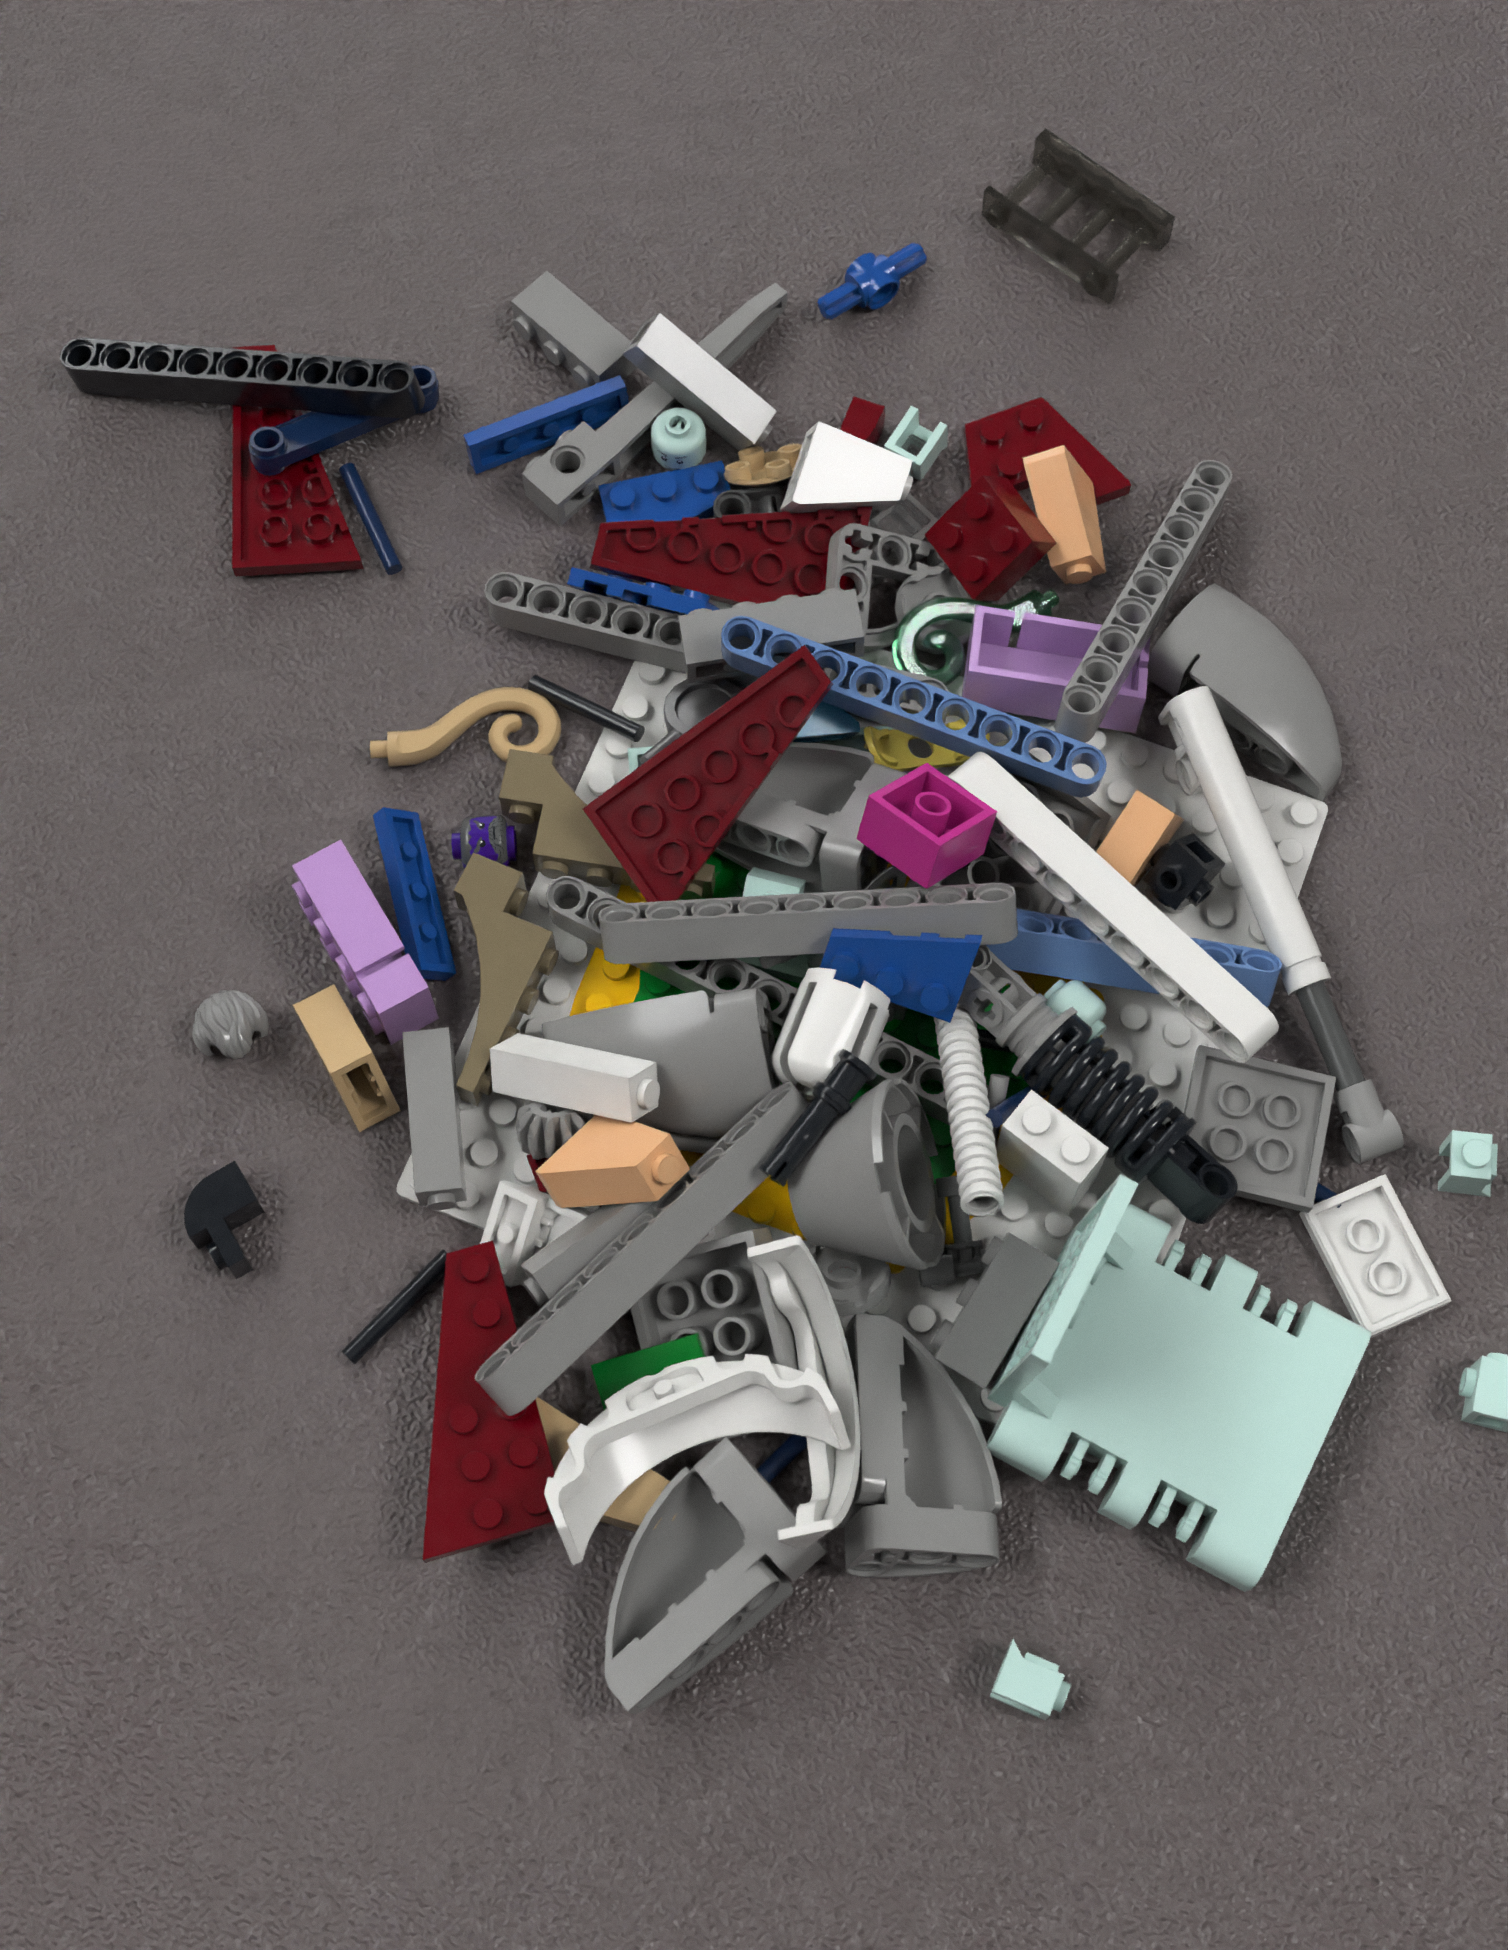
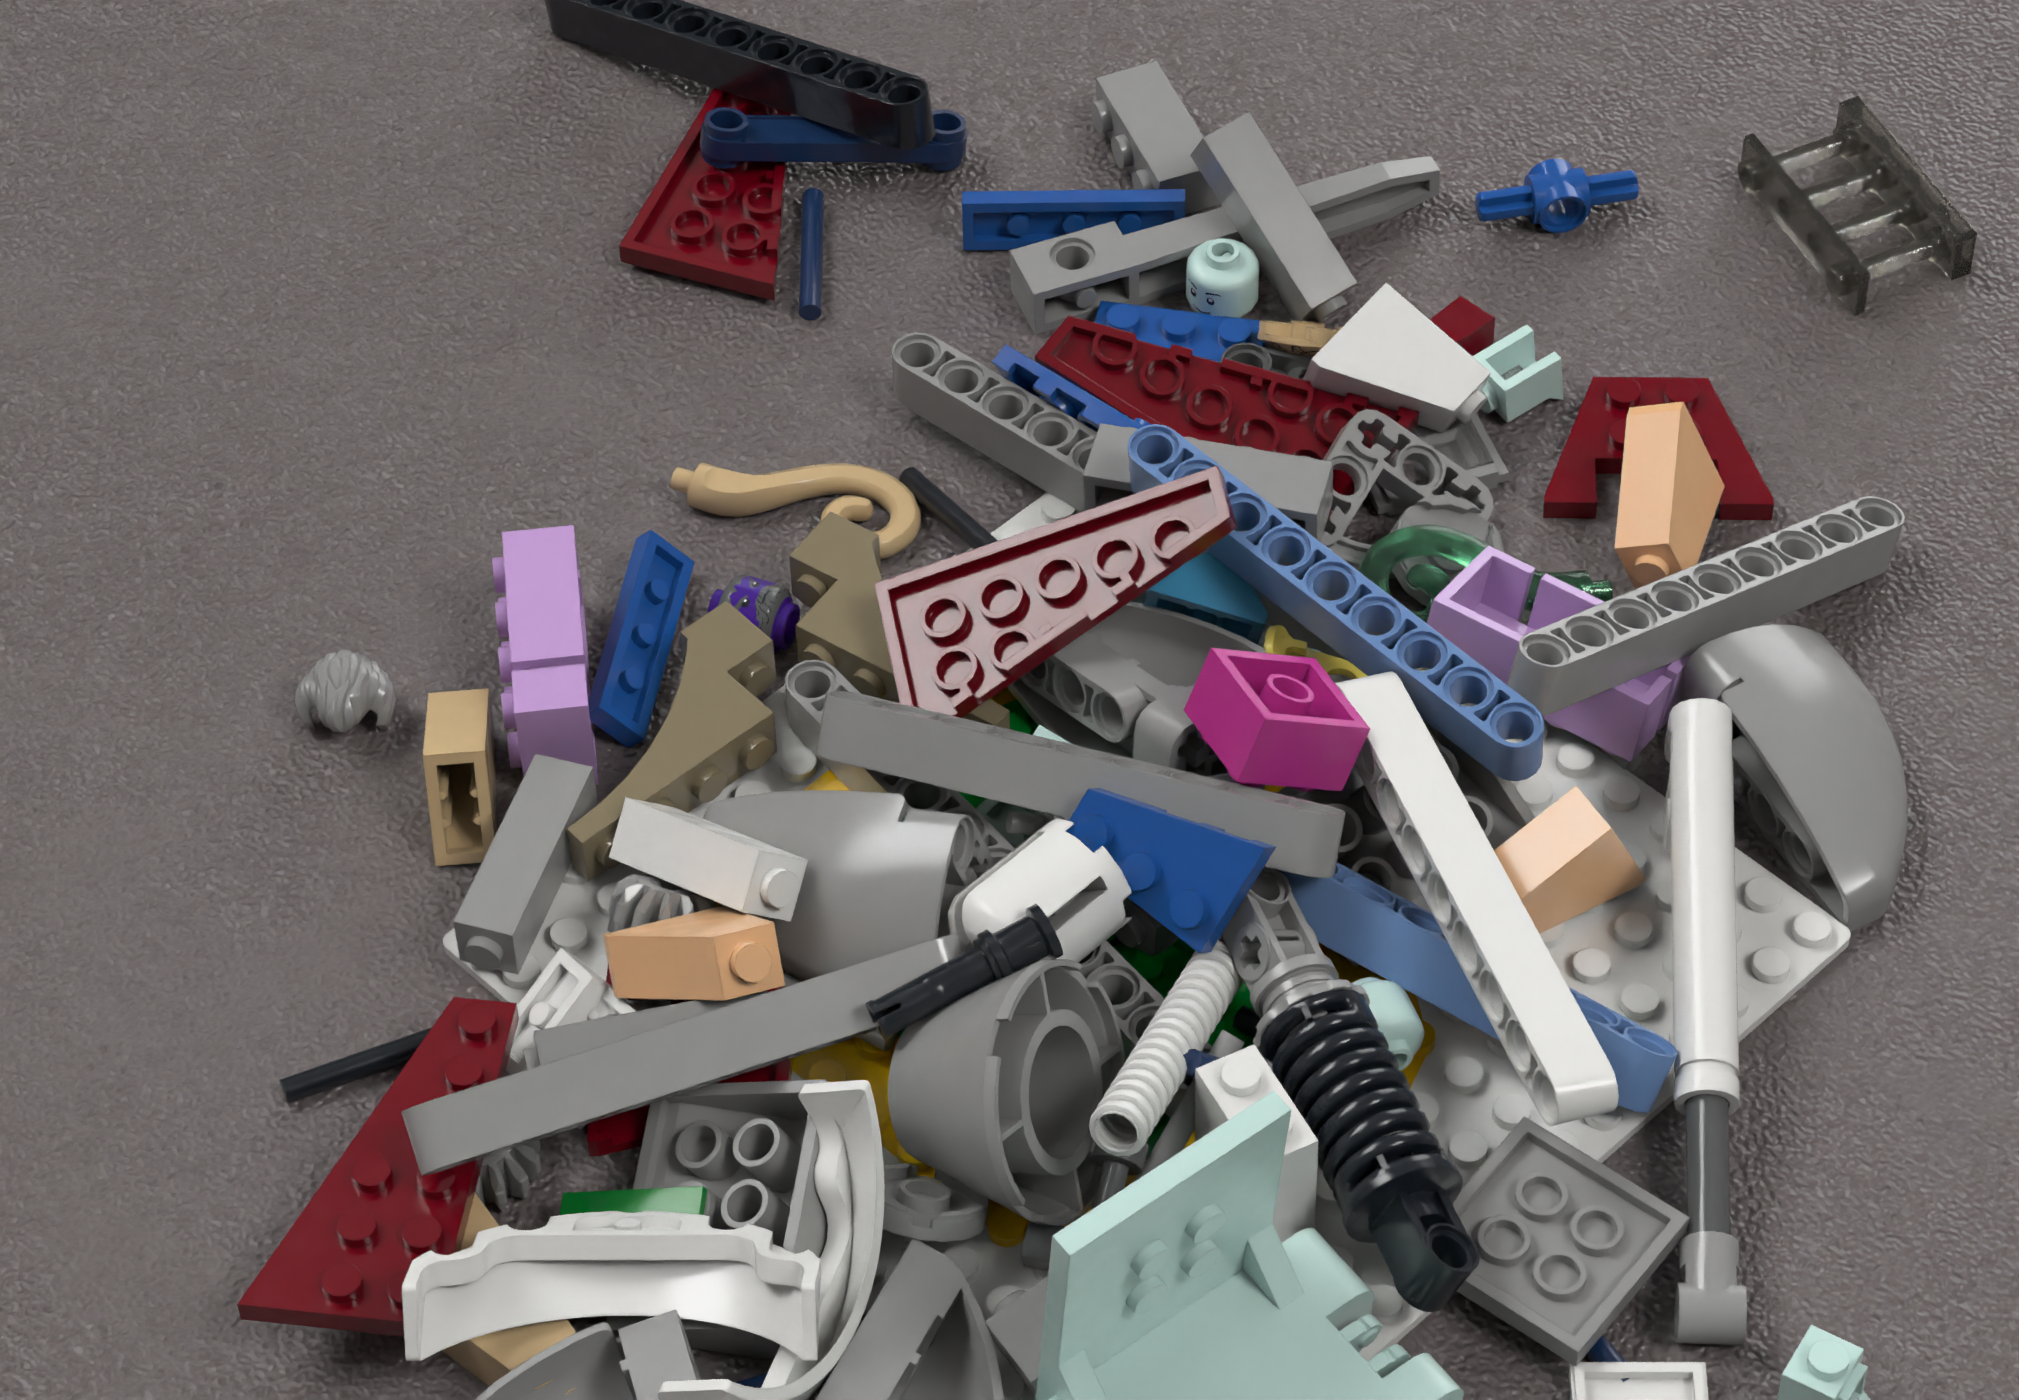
camera: 25 degrees right, 20 degrees down
(215, 1209) = (220, 878): black brick -> none
(990, 538) = (1550, 488): dark red brick -> none
(1183, 872) = (1604, 919): black brick -> none

